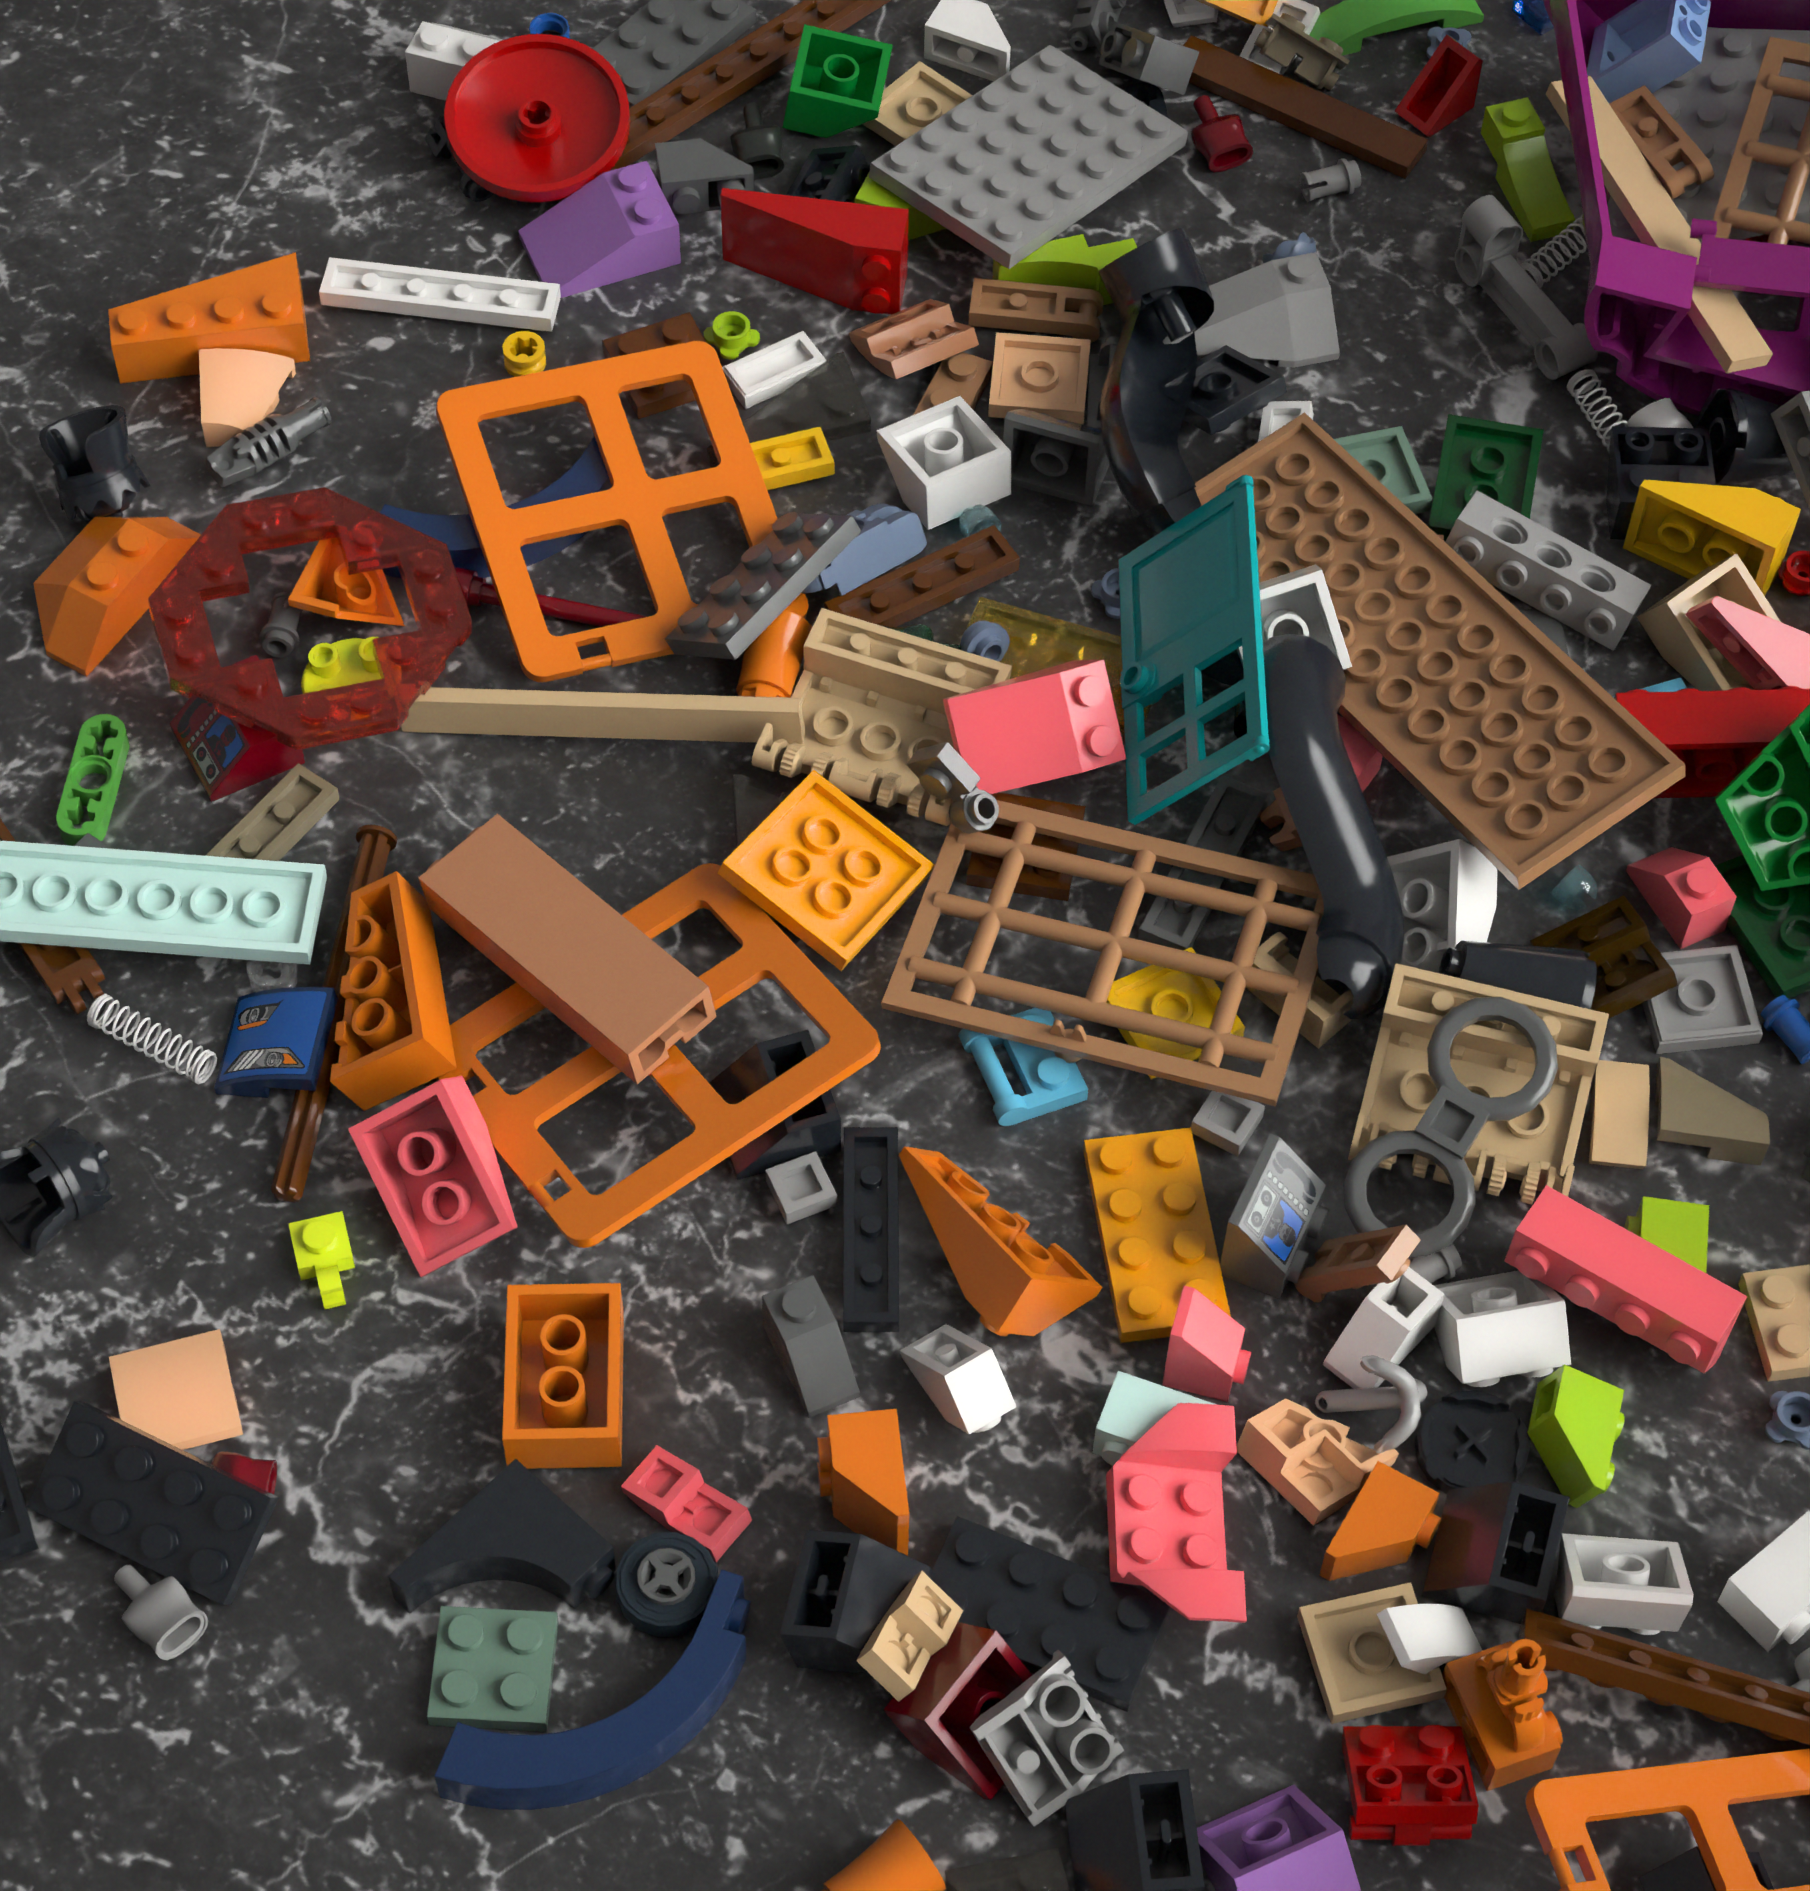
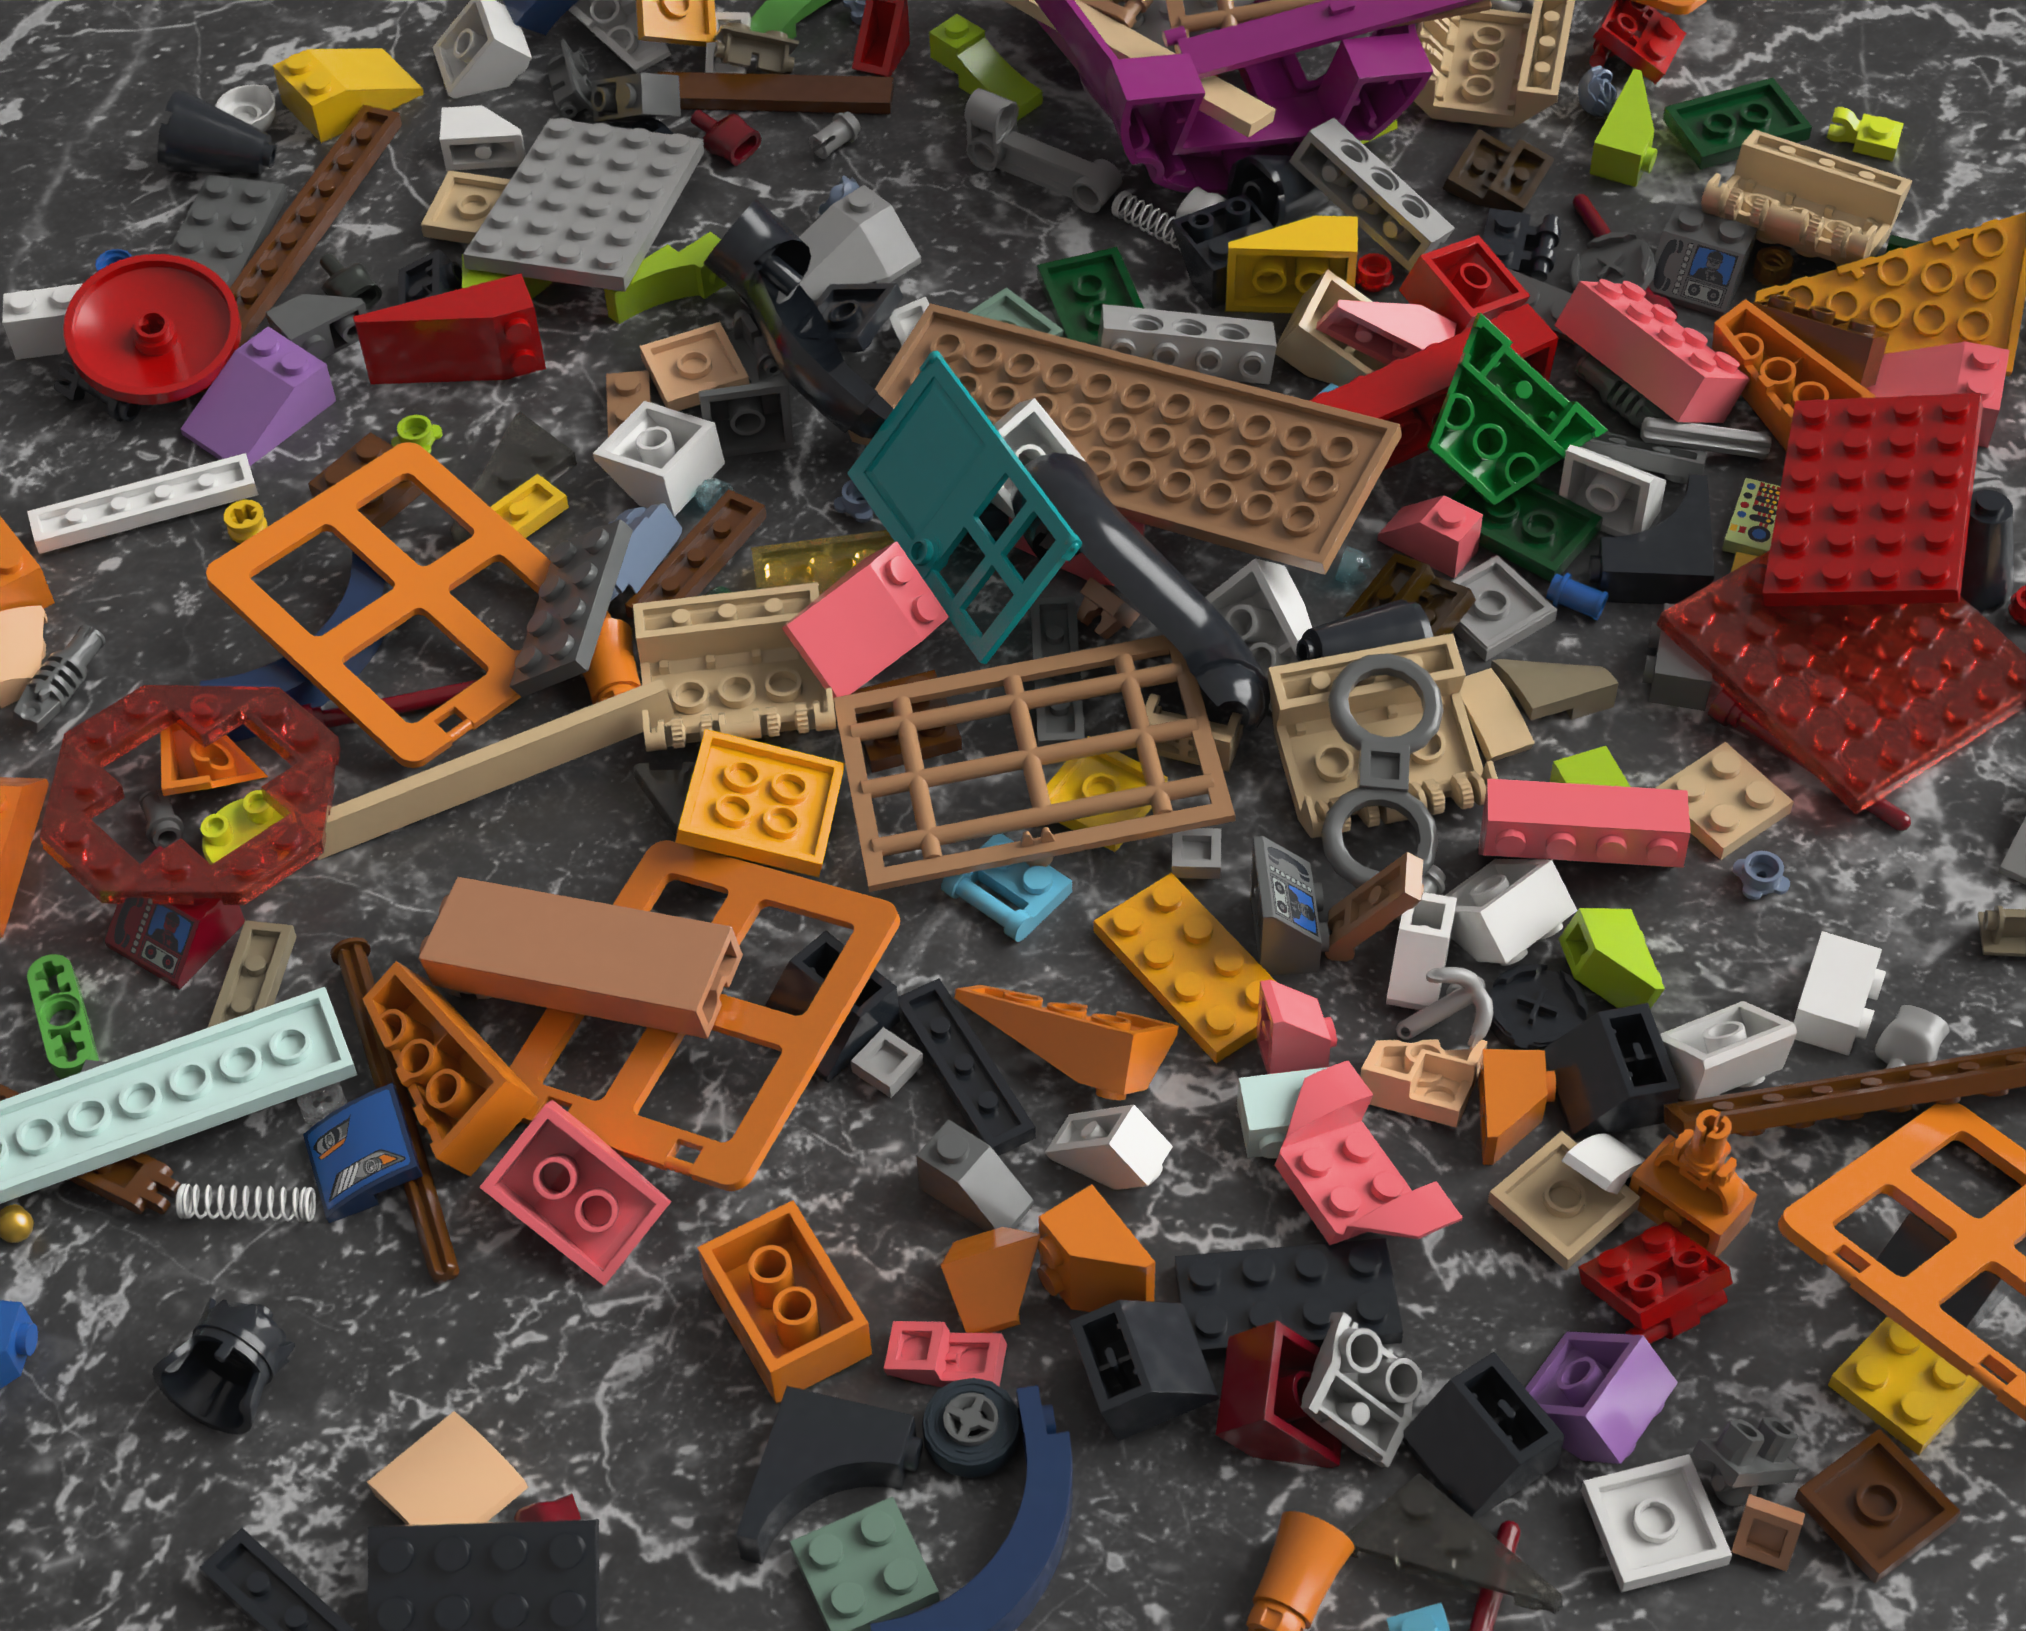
camera: 25 degrees left, 5 degrees down
(322, 1252) = (506, 1305): neon yellow plate -> none
(763, 1447) = (990, 1277): none -> orange slope
(772, 369) = (471, 445): white tile -> none
(835, 82) = (389, 210): green slope -> none
(909, 1635) = (1204, 1360): tan slope -> none
(913, 338) = (572, 378): nougat slope -> none
(948, 776) = (825, 681): dark grey plate -> none
(986, 640) = (781, 572): sand blue plate -> none
(1036, 308) = (657, 317): medium nougat plate -> none
(1536, 273) = (1049, 90): white piece -> none

